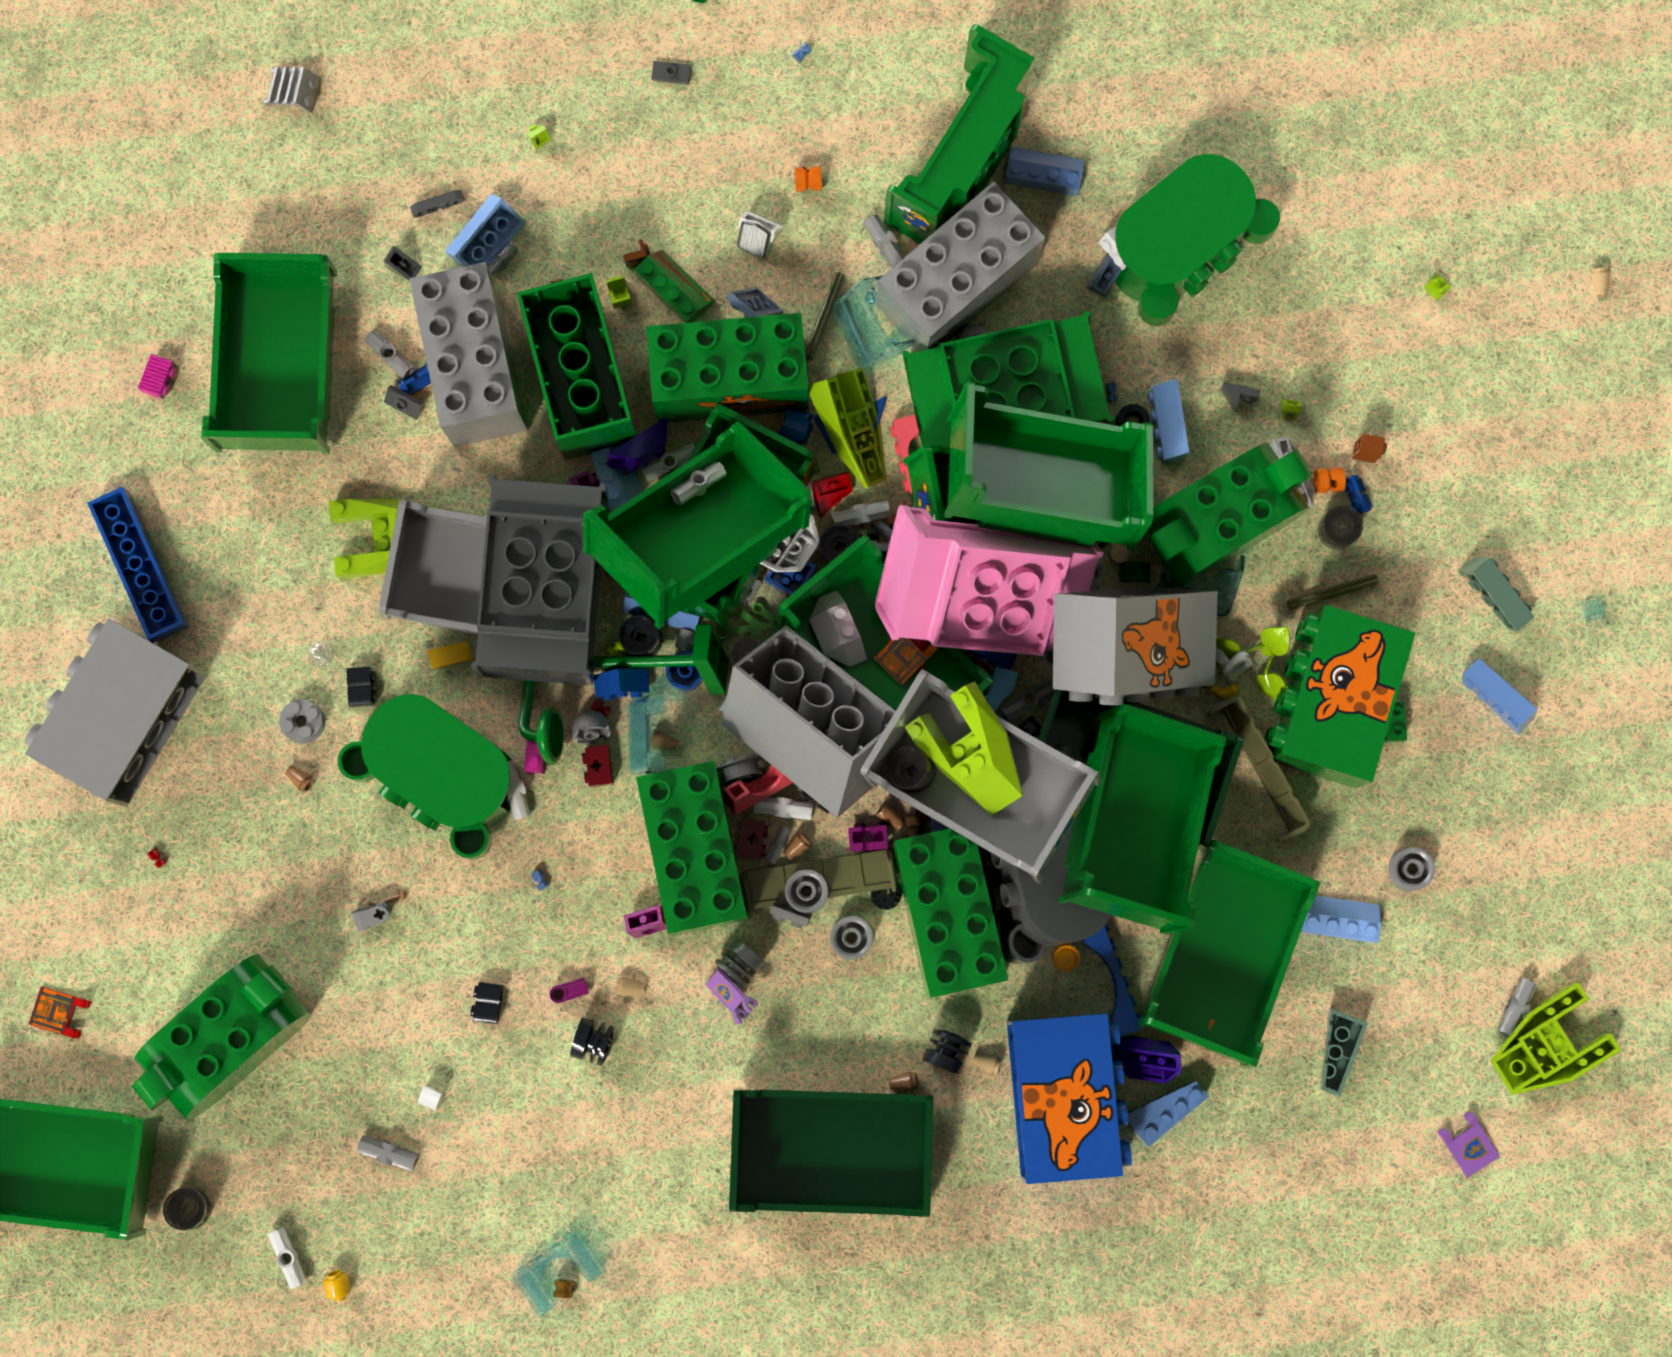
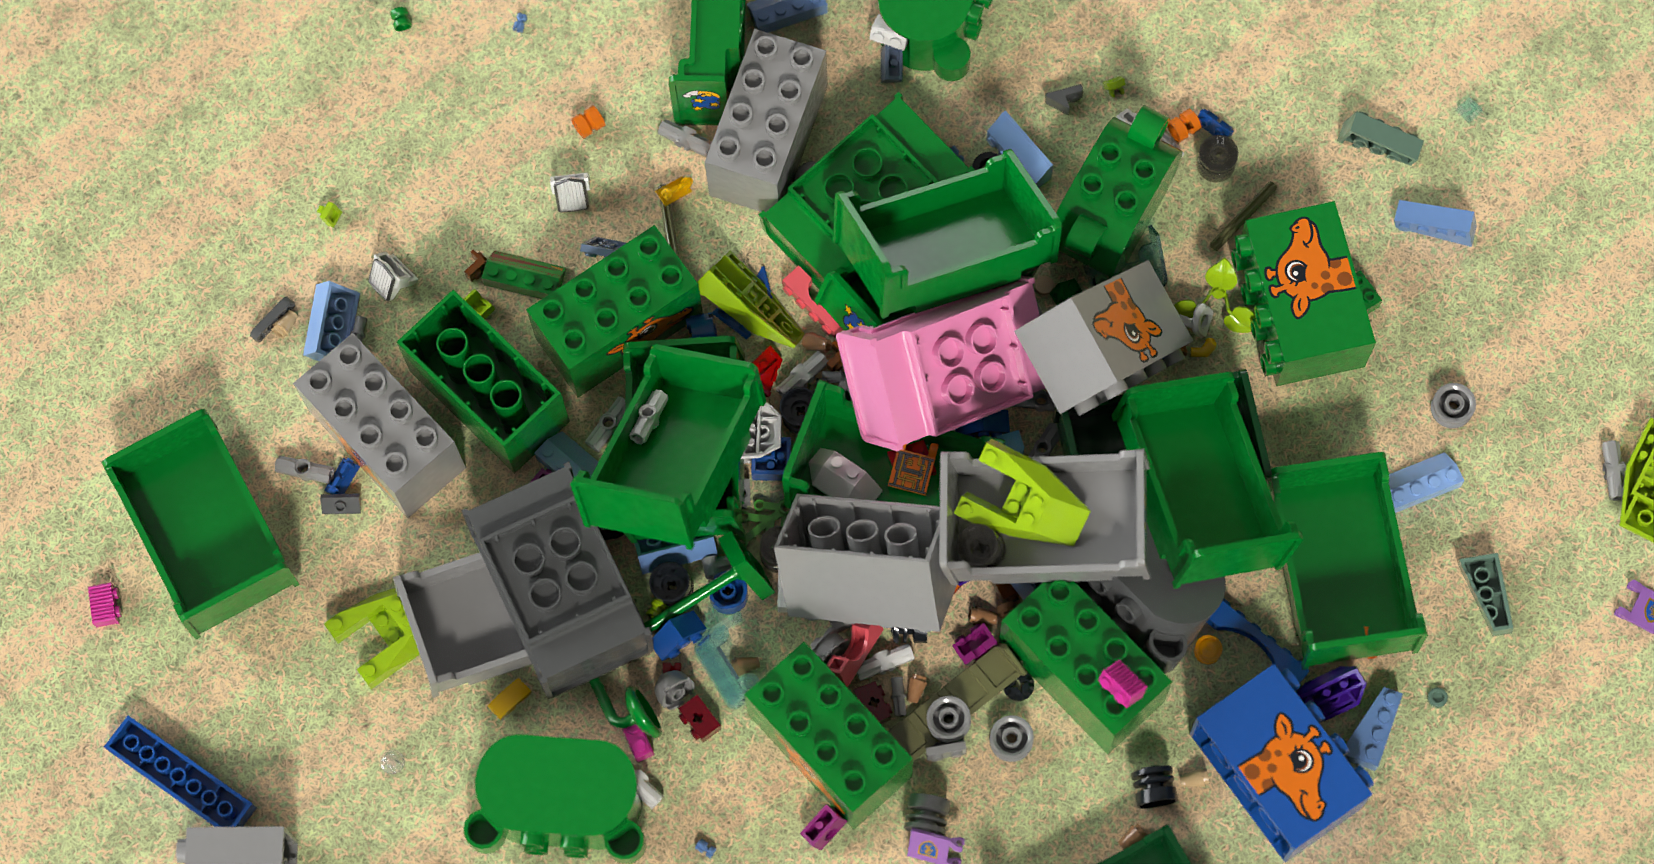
camera: 25 degrees left, 10 degrees down
(293, 712) = (418, 840): light grey wheel -> none
(300, 89) = (94, 289): light grey plate -> none
(360, 687) = (445, 771): black brick -> none
(401, 263) = (270, 387): dark grey slope -> none
(444, 214) = (284, 325): none -> tan cone
(559, 221) = (389, 275): none -> white piece
(639, 450) = (577, 424): dark purple wedge -> none
(671, 72) = (415, 100): dark grey plate -> none
(843, 283) = (675, 190): none -> yellow hinge
(862, 328) = (709, 221): clear light blue windscreen -> none
(890, 492) = (815, 342): none -> medium nougat cone
(962, 959) = (1122, 683): none -> dark pink brick
(1238, 1114) = (1437, 697): none -> sand green tile
(1265, 766) = (1278, 390): olive piece -> none
(1369, 448) = (1201, 80): dark orange brick -> none

